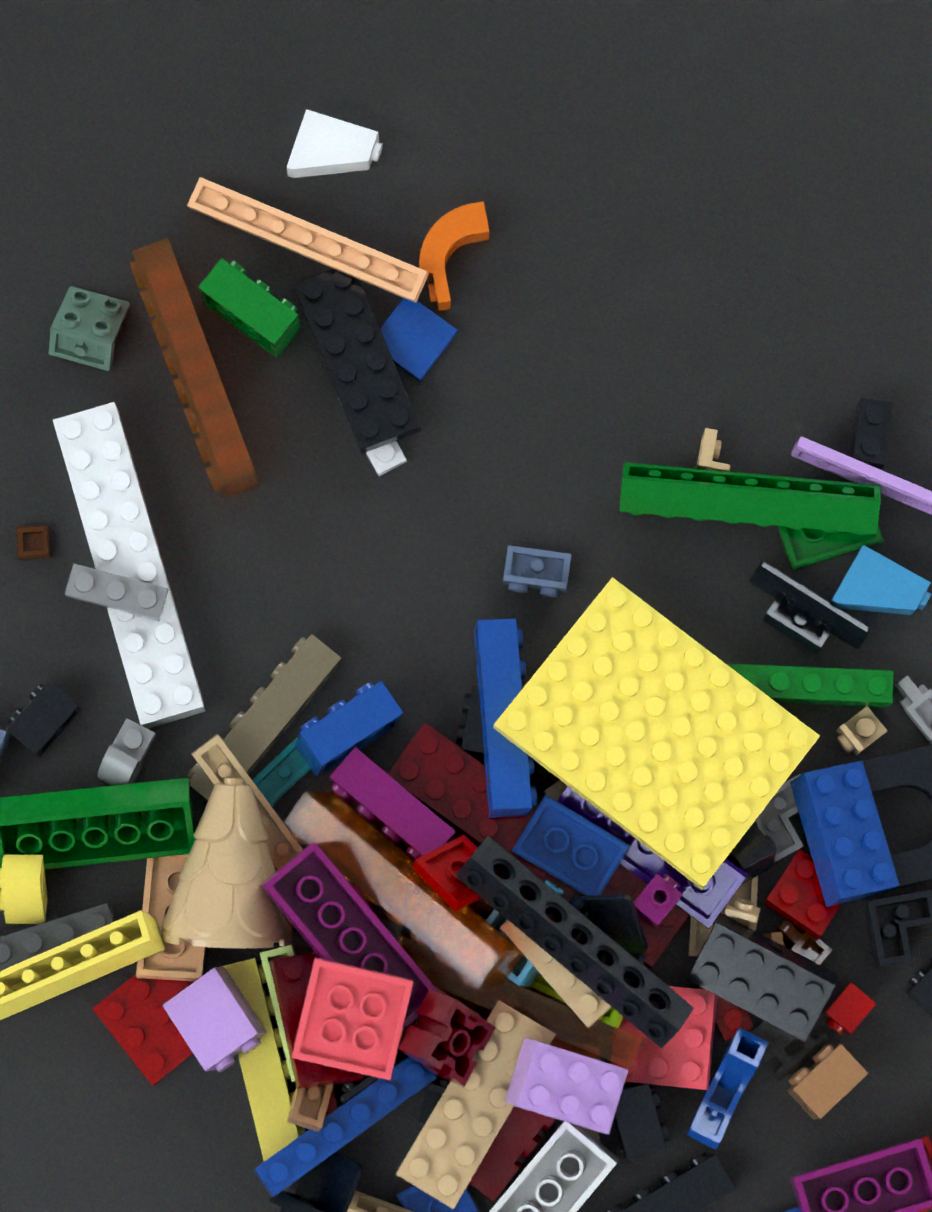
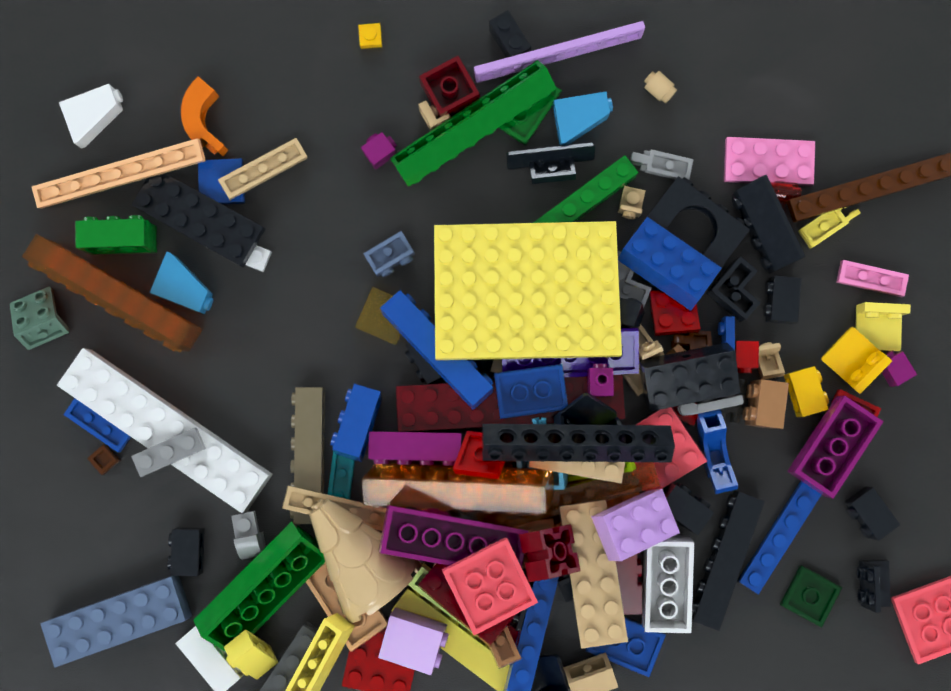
camera: 35 degrees left, 5 degrees up
(59, 499) = (97, 425): none -> blue plate
(275, 419) = (181, 286): none -> dark azure slope
(457, 630) = (373, 321): none -> clear yellow tile
(472, 361) = (262, 169): none -> tan plate
(620, 443) = (379, 149): none -> magenta brick
(714, 306) = (370, 35): none -> yellow plate
(755, 437) = (449, 87): none -> dark red brick
(784, 1041) = (710, 405): none -> light grey hinge
(851, 963) = (726, 329): none -> blue plate
(872, 1038) = (769, 361): none -> tan bracket
(886, 1107) = (806, 391): none -> yellow brick

